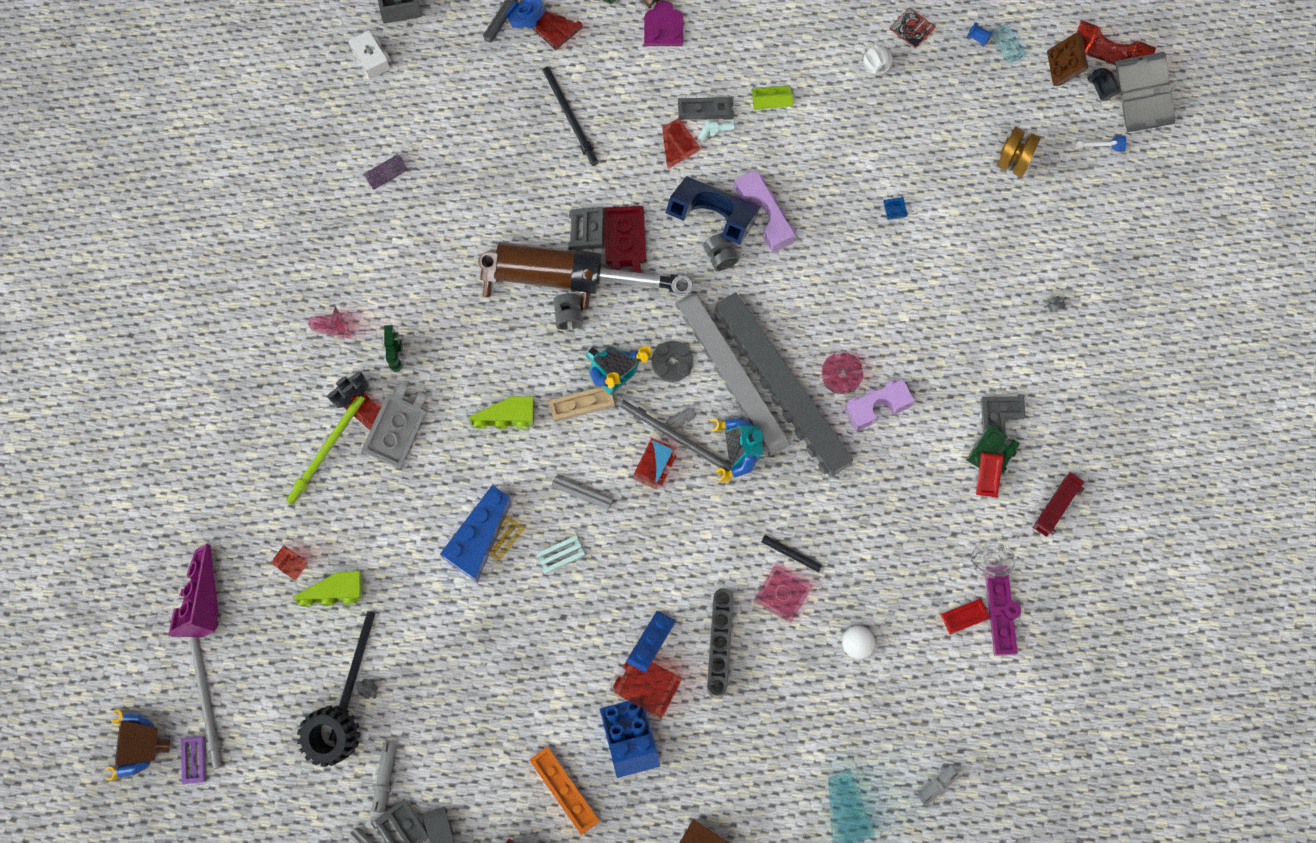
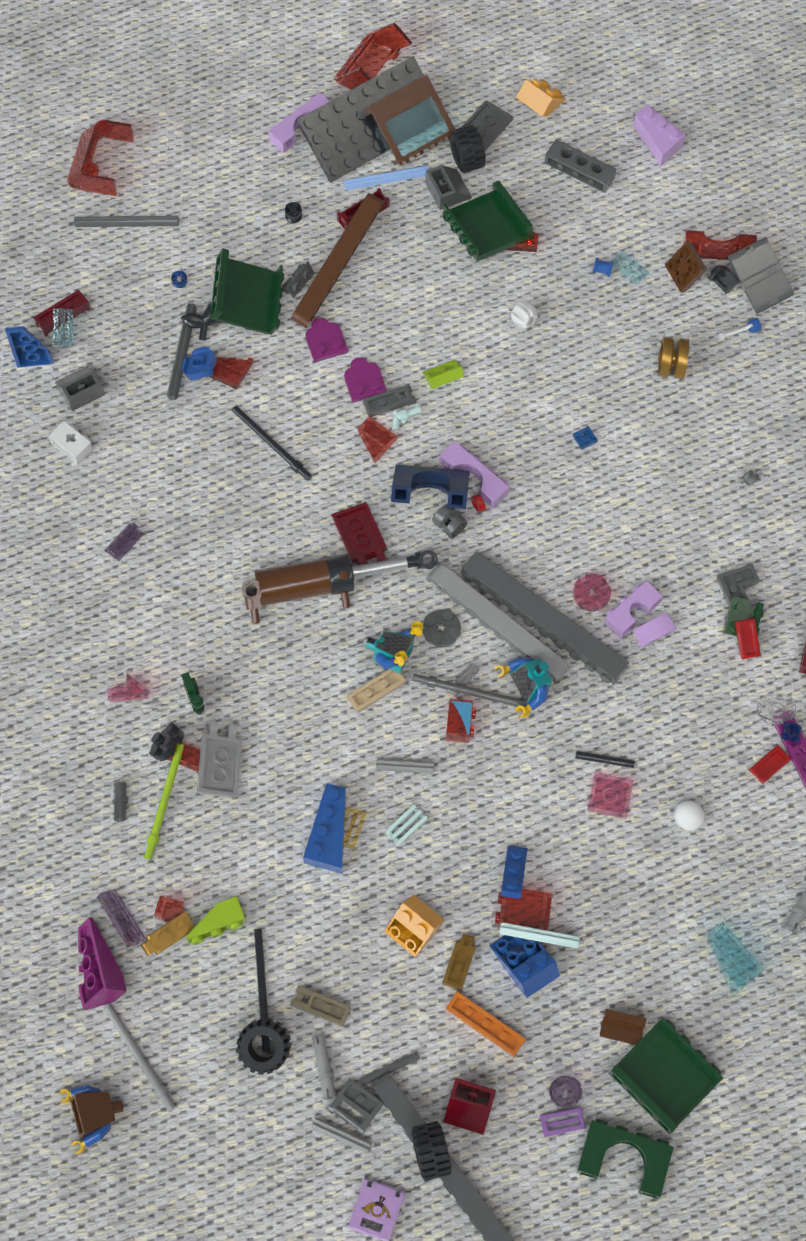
camera: 20 degrees left, 5 degrees down
(202, 763) = (154, 1126): medium lavender tile -> none
(239, 554) = (121, 918): none -> clear purple plate
(279, 587) = (168, 934): none -> pearl gold hinge
(283, 435) = (120, 801): none -> dark grey axle
(367, 689) = (280, 996): dark grey plate -> none
(404, 714) = (321, 1006): none -> dark tan plate
(450, 802) = (390, 1068): none -> dark grey bar
(512, 411) = (316, 717): lime slope -> none
(529, 661) = (414, 925): none -> light orange slope
(562, 716) = (459, 962): none -> pearl gold hinge
(567, 310) = (335, 612): dark grey wheel -> none
(592, 228) = (329, 533): dark grey plate -> none
(652, 717) = (539, 935): none -> light aqua axle
(687, 78) = (363, 380): none -> magenta plate
(724, 633) = (572, 864): dark grey beam -> none
(757, 243) = (478, 503): none -> red tile
(893, 433) = (654, 629): none -> lavender slope
(912, 27) = (542, 278): piece -> none
(1005, 588) = (795, 728): none -> clear blue plate

